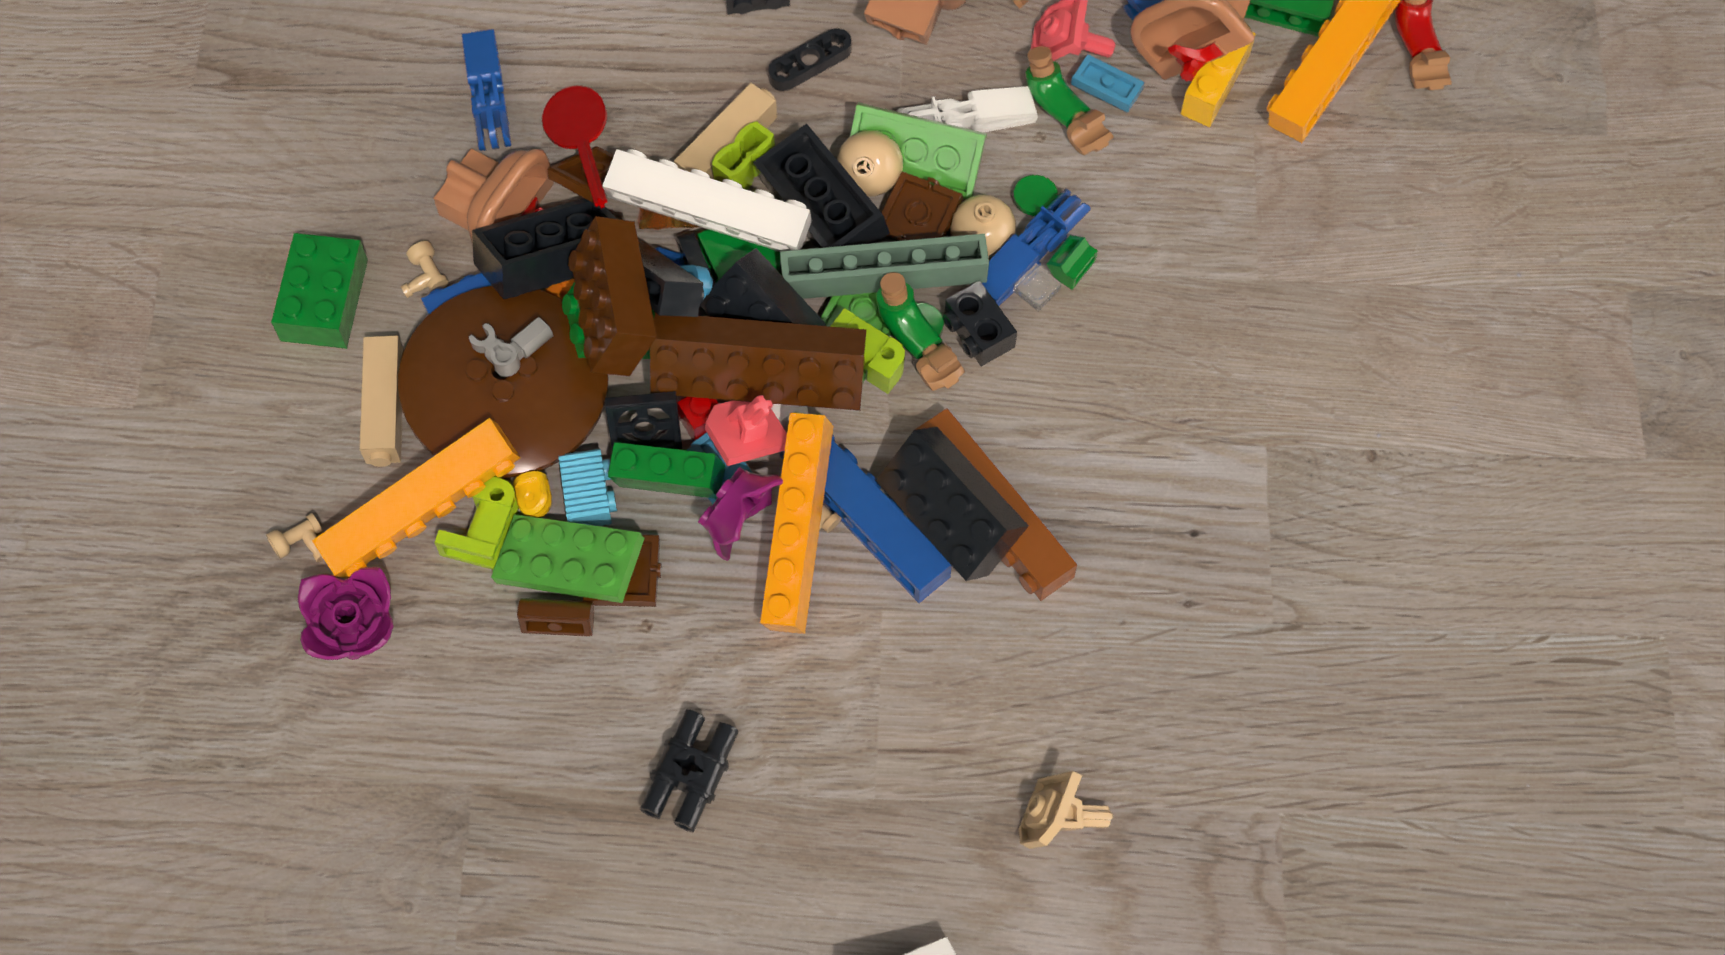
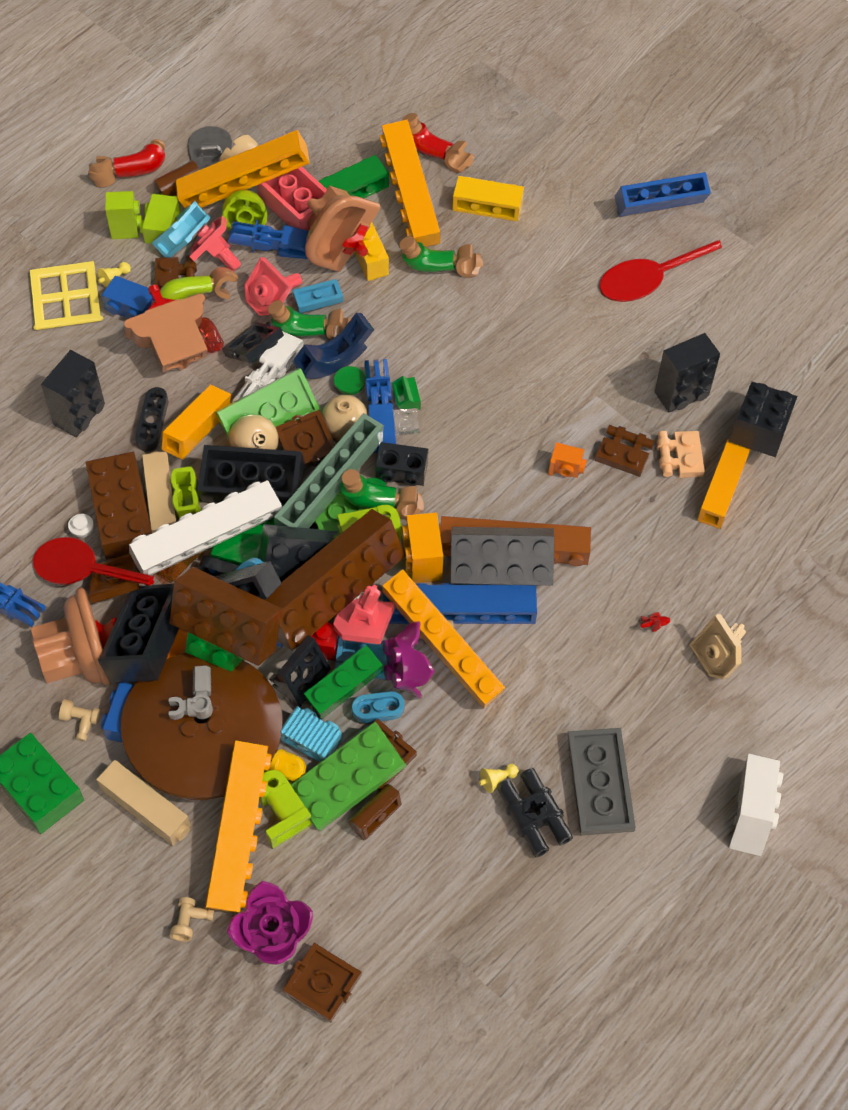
camera: 50 degrees left, 5 degrees down
(332, 712) = (322, 982): none -> reddish brown plate
(630, 99) = (81, 525): none -> white plate
(677, 528) = (378, 704): none -> dark azure plate
(681, 104) = (118, 502): none -> reddish brown brick
(695, 700) = (491, 777): none -> light yellow piece
(784, 810) = (601, 781): none -> dark grey plate
(833, 95) = (194, 422): none -> light orange brick
(890, 419) = (423, 548): none -> light orange brick
(954, 32) = (212, 337): none -> clear red piece
(983, 70) = (253, 342): none -> black plate
(1029, 720) = (655, 621): none -> red plant
(1045, 155) = (328, 358): none -> dark blue arch
(1143, 479) = (567, 461): none -> orange brick
(1211, 532) = (622, 456): none -> reddish brown plate
(1263, 148) = (428, 260): none -> piece
(1277, 661) = (723, 485): none -> light orange brick
(1280, 599) = (688, 454): none -> light nougat plate
(1371, 510) = (687, 372): none -> black brick
(1397, 638) = (763, 419): none -> black brick
(1406, 140) = (488, 198): none -> yellow brick
(1476, 372) = (641, 277): none -> red piece
(1603, 306) = (662, 194): none -> blue brick

